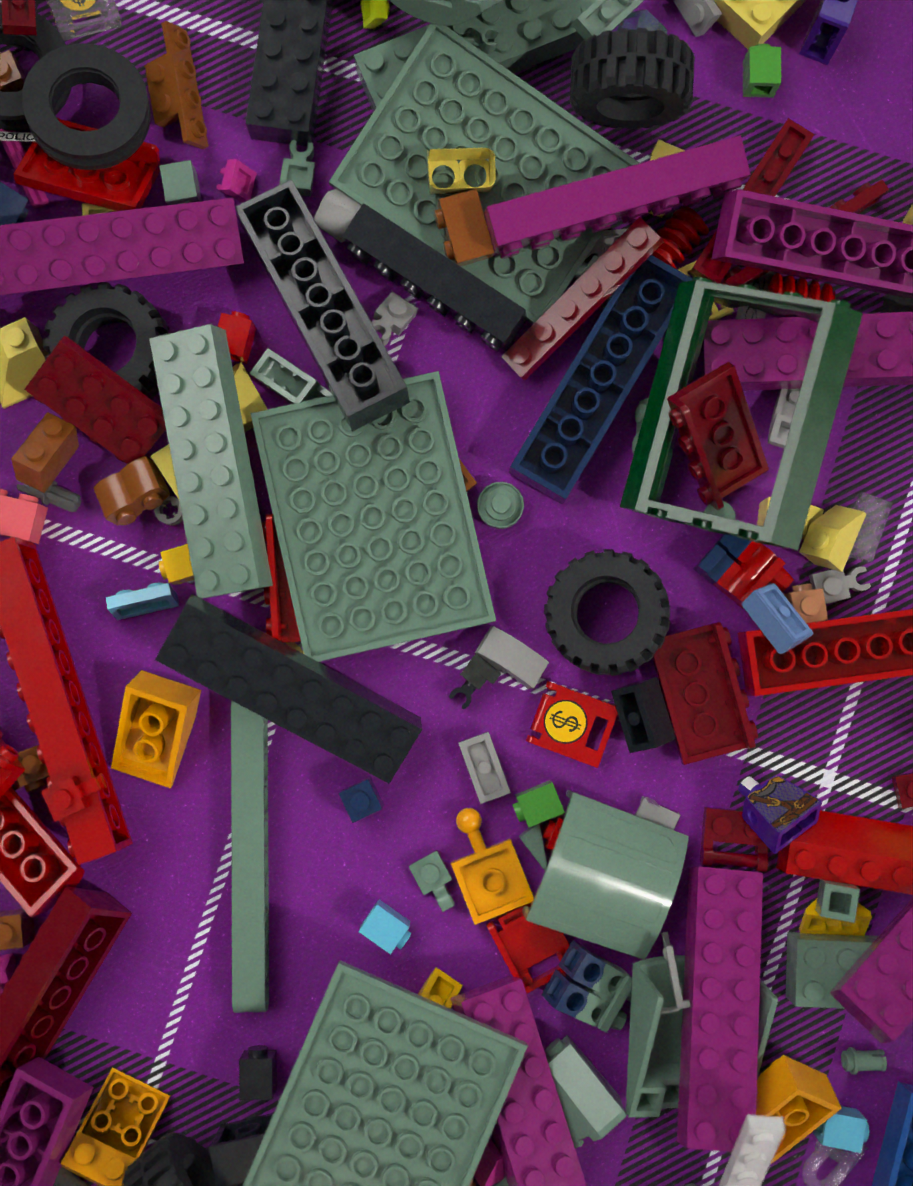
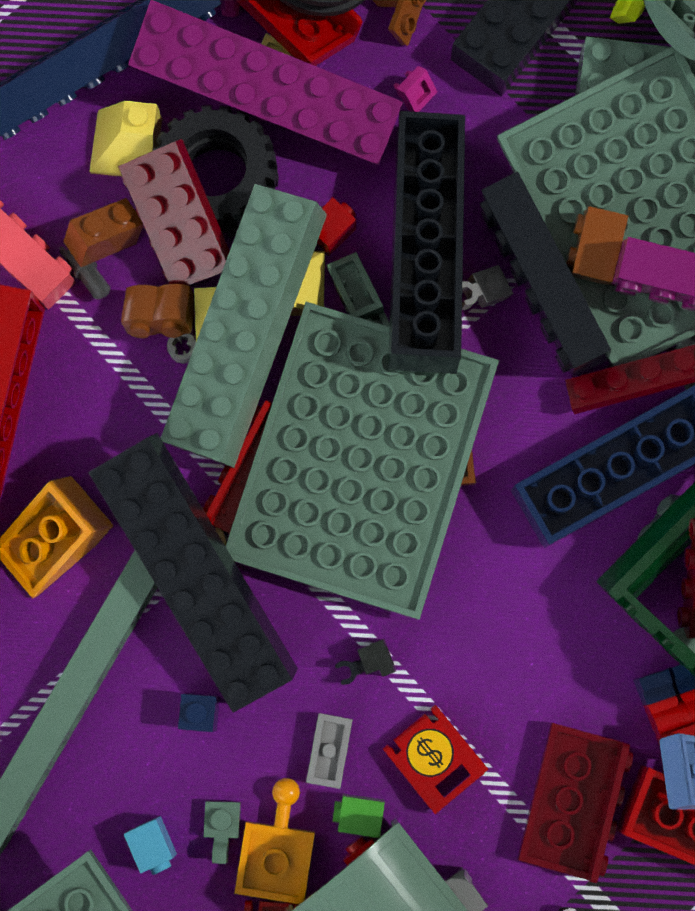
camera: 35 degrees right, 5 degrees down
(147, 600) = (108, 414): medium azure plate -> none
(176, 565) = (158, 399): yellow brick -> none
(180, 183) = (364, 63): sand green brick -> none
(299, 169) = (478, 110): sand green plate -> none
(336, 213) = (487, 167): light grey piece -> none
(449, 158) = (638, 183): light yellow piece -> none
(500, 505) = (485, 515): sand green plate -> none
(512, 656) = (415, 662): light grey slope -> none
(533, 841) = (335, 846): sand green piece -> none
(587, 573) = (535, 626): black tyre -> none
(643, 715) = (506, 790): black brick -> none

